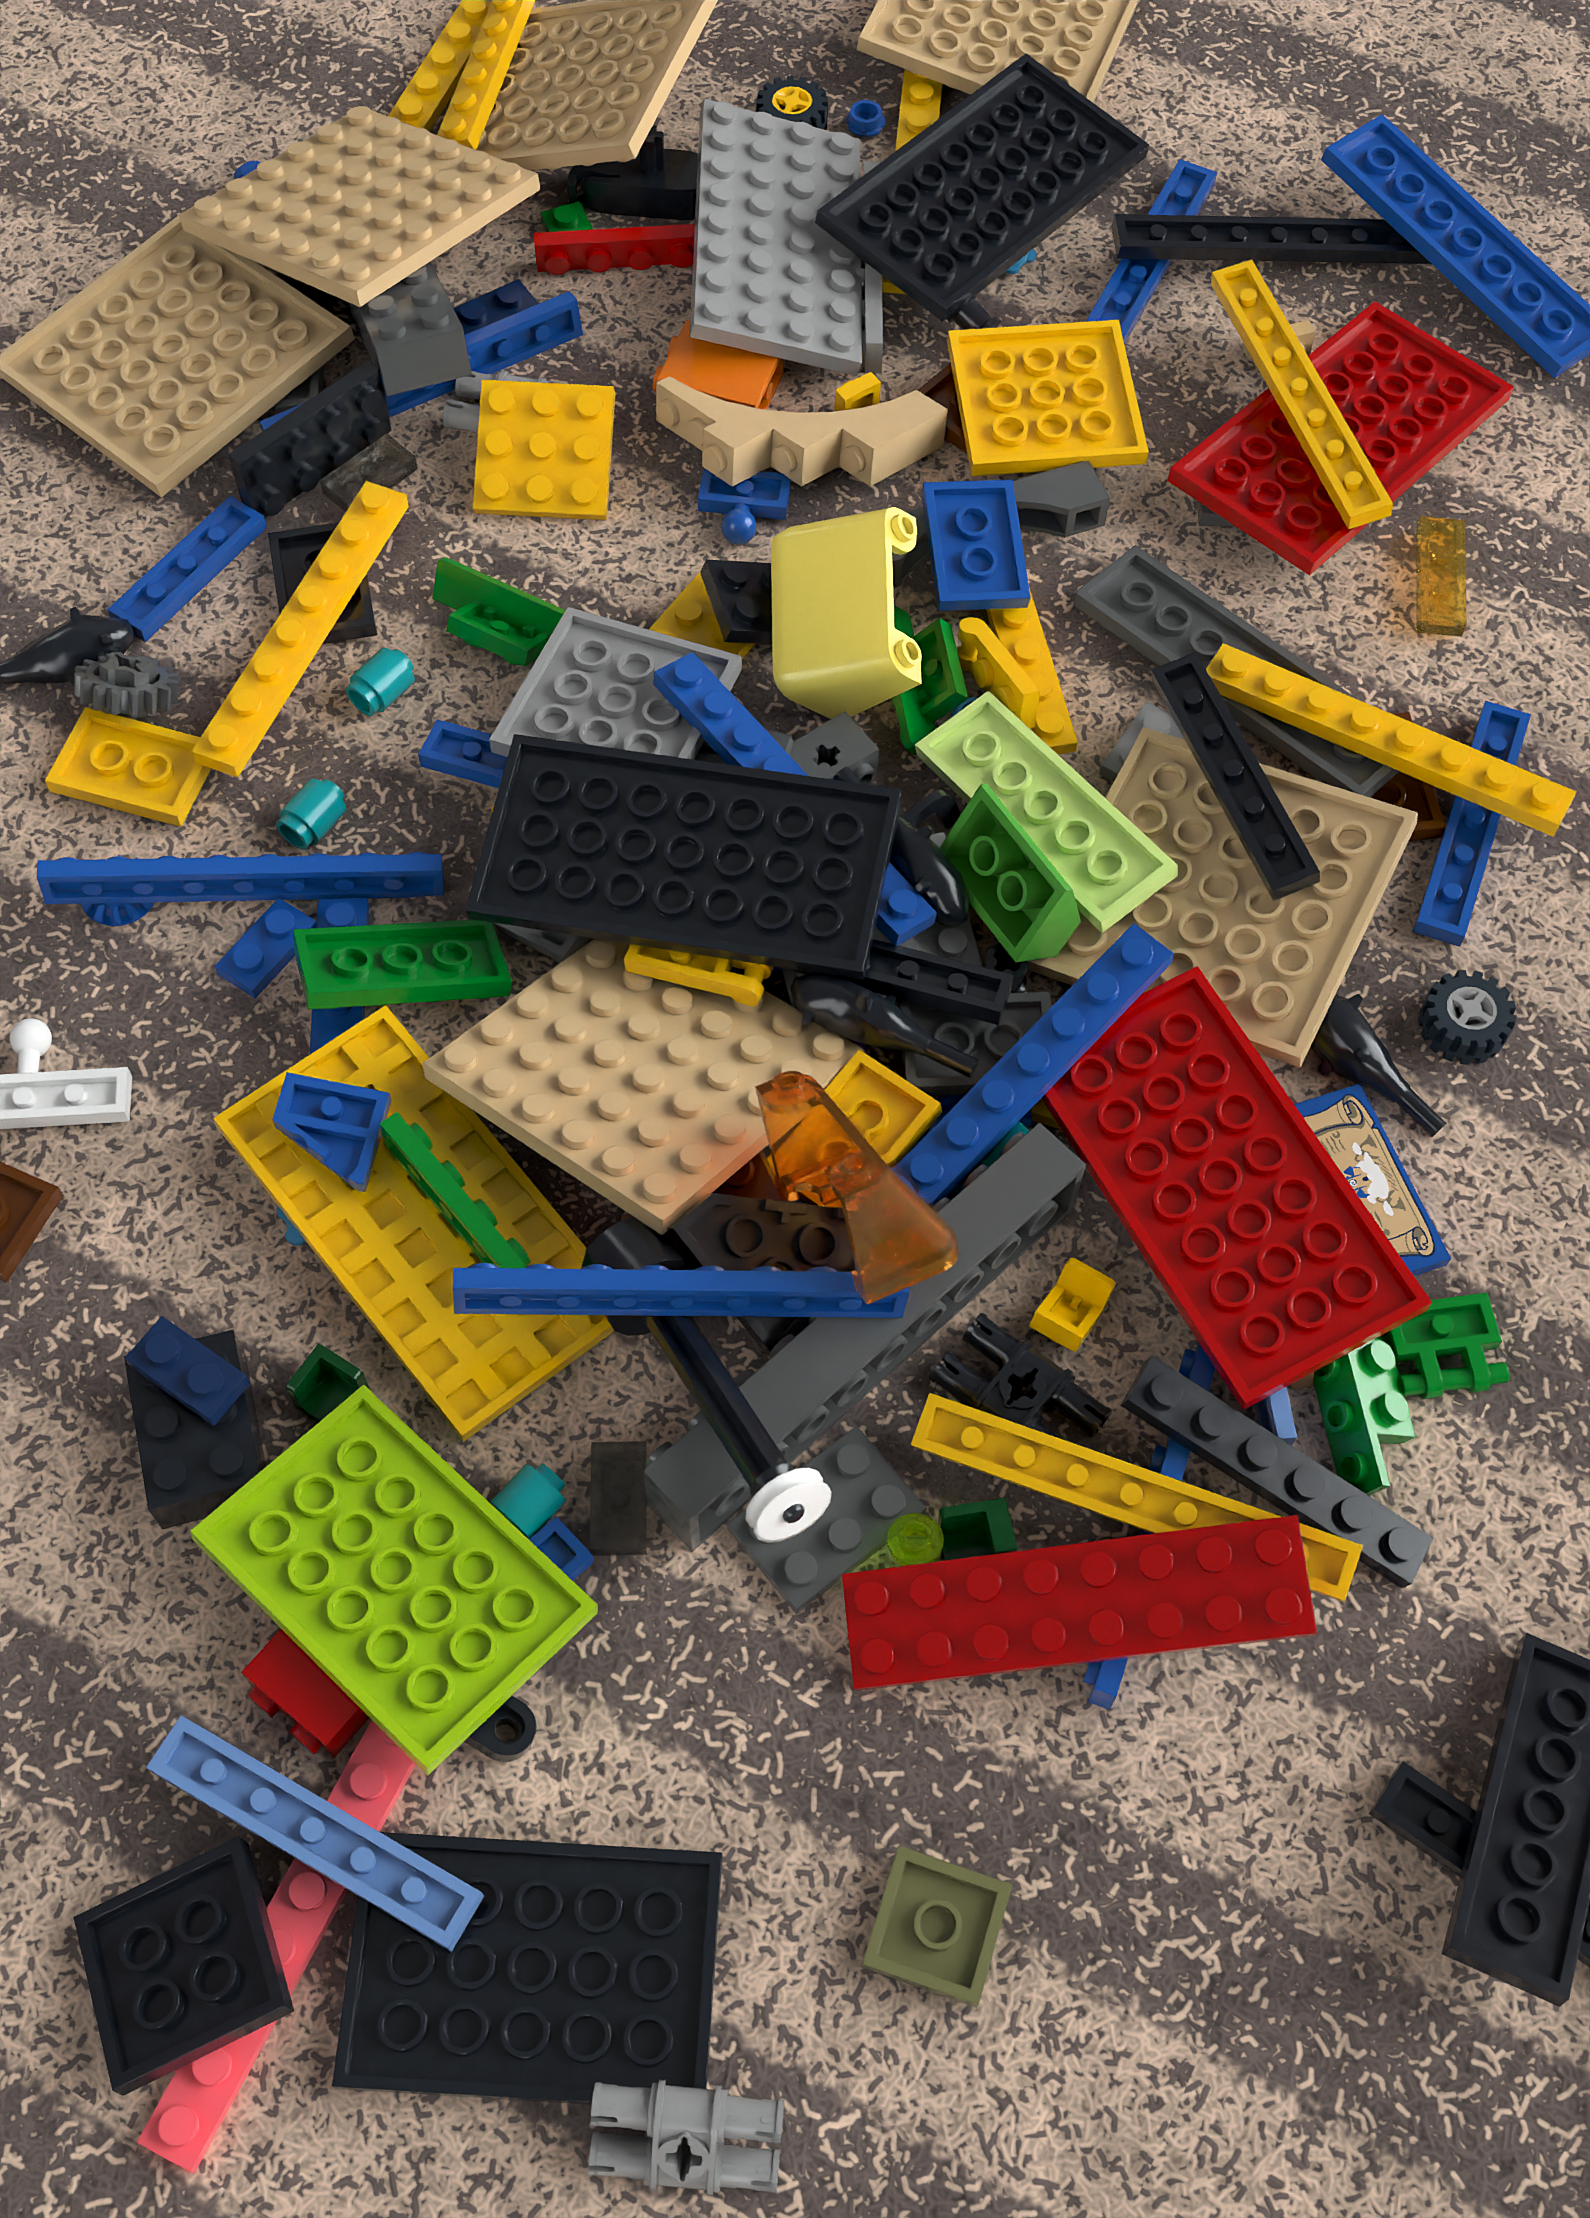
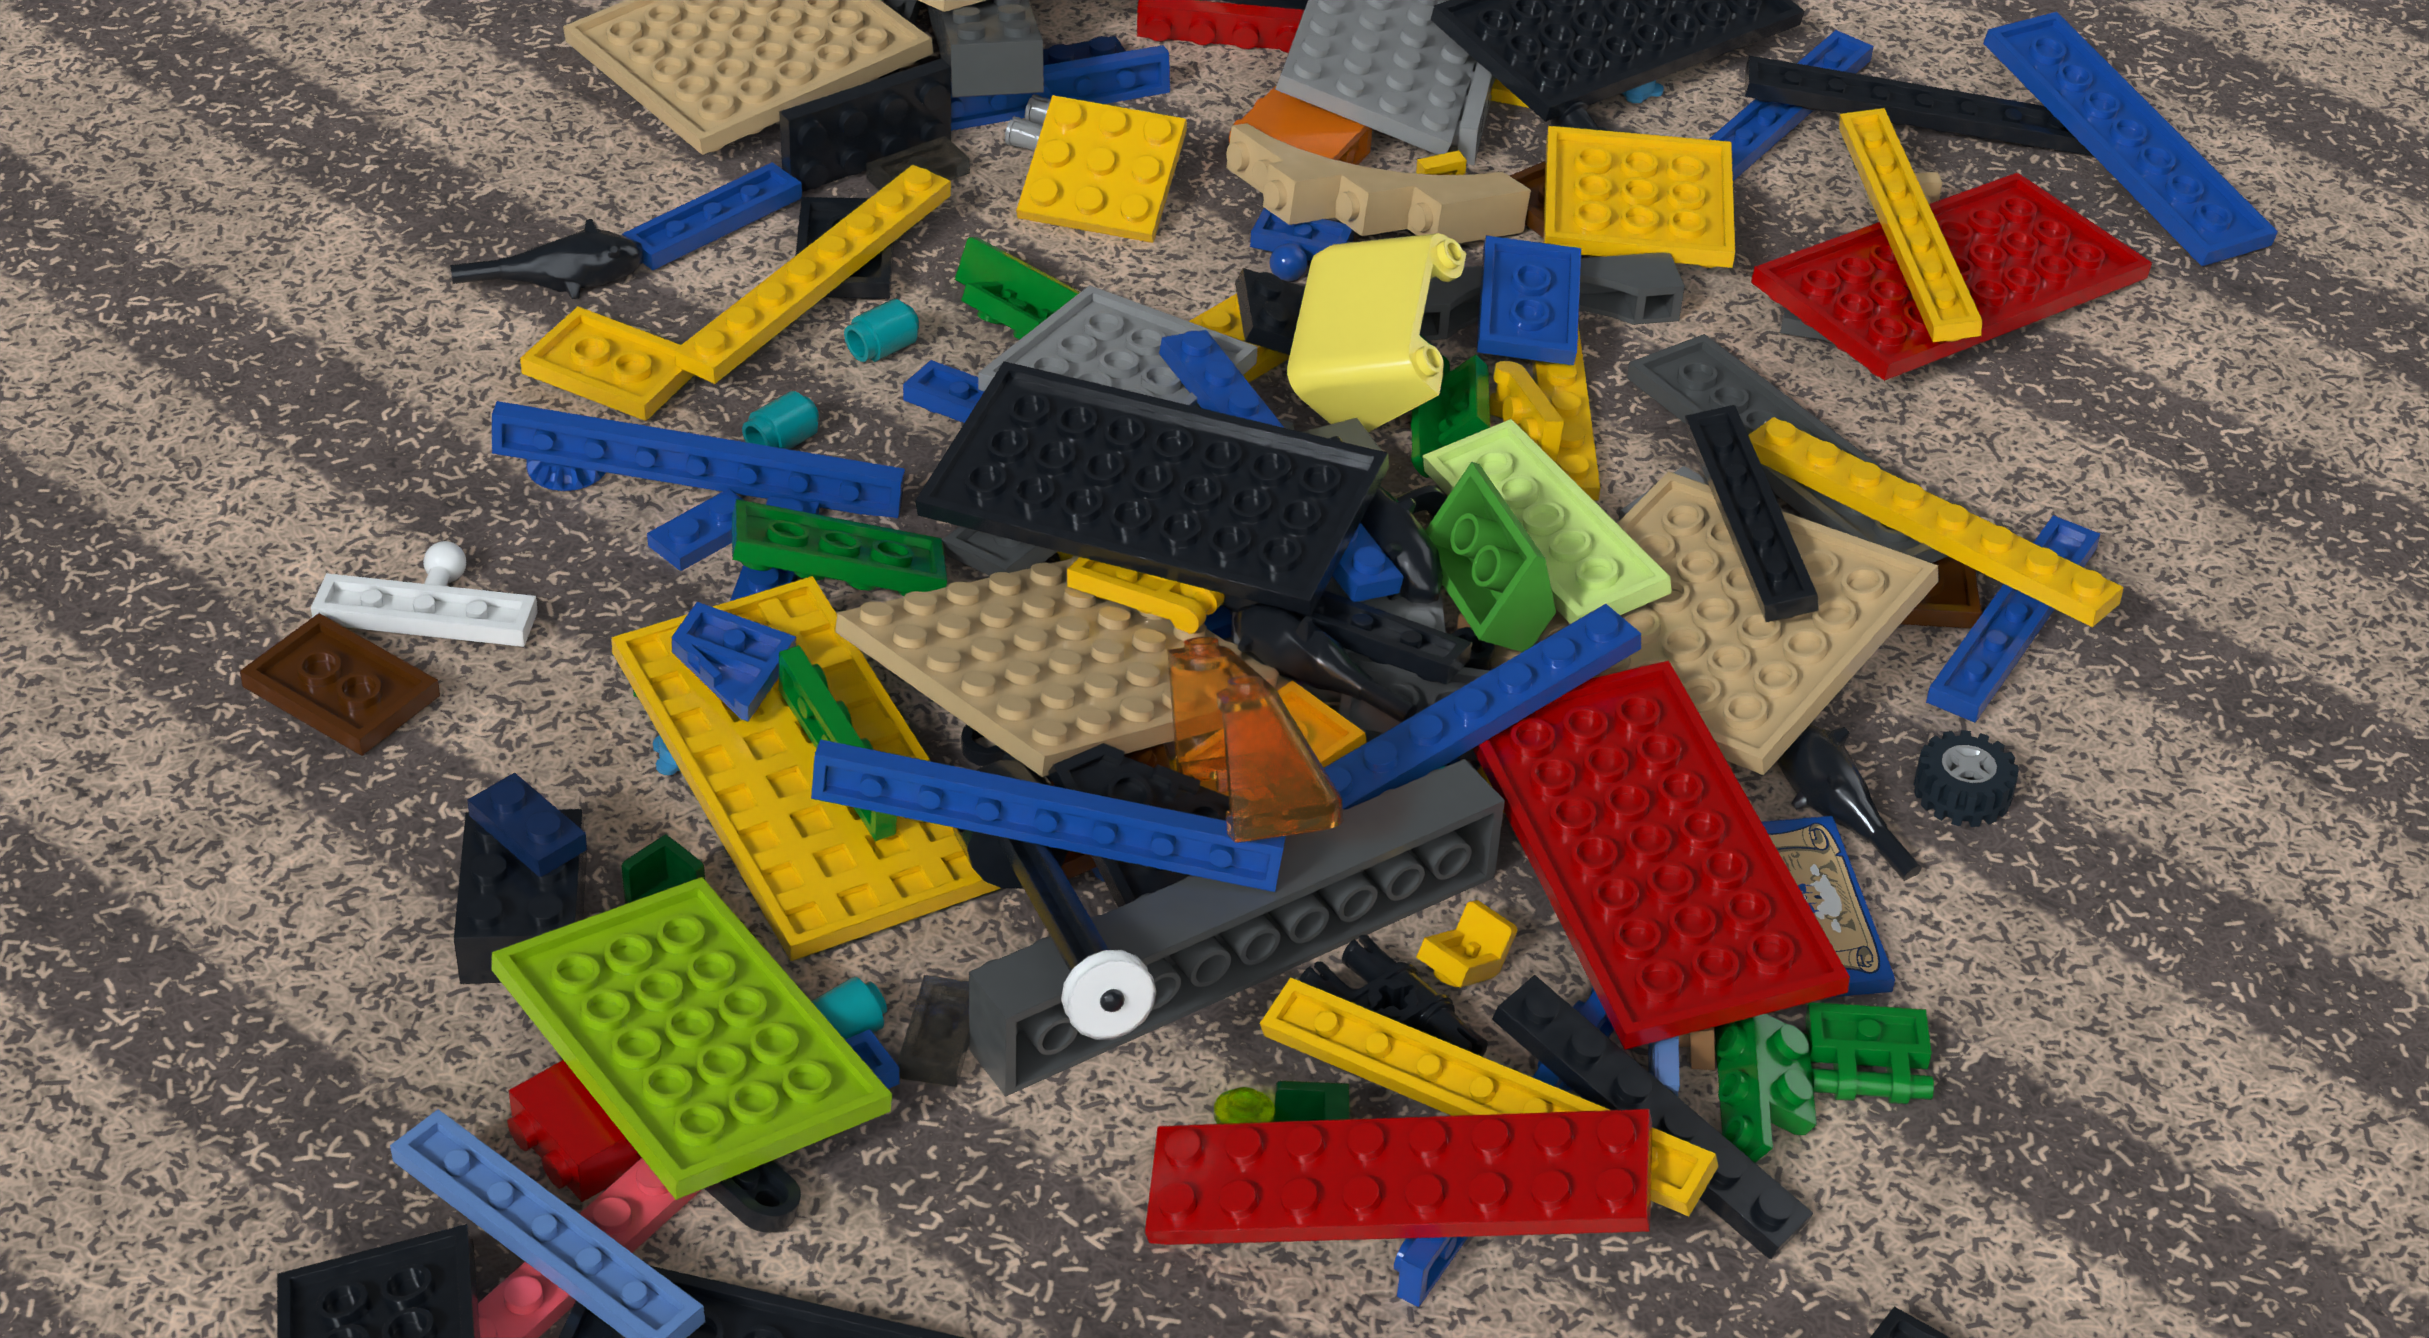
camera: 10 degrees right, 20 degrees down
(126, 685) = (624, 292): dark grey gear -> none
(854, 1526) = (1149, 1083): dark grey plate -> none
(1440, 576) = (2032, 409): clear yellow plate -> none

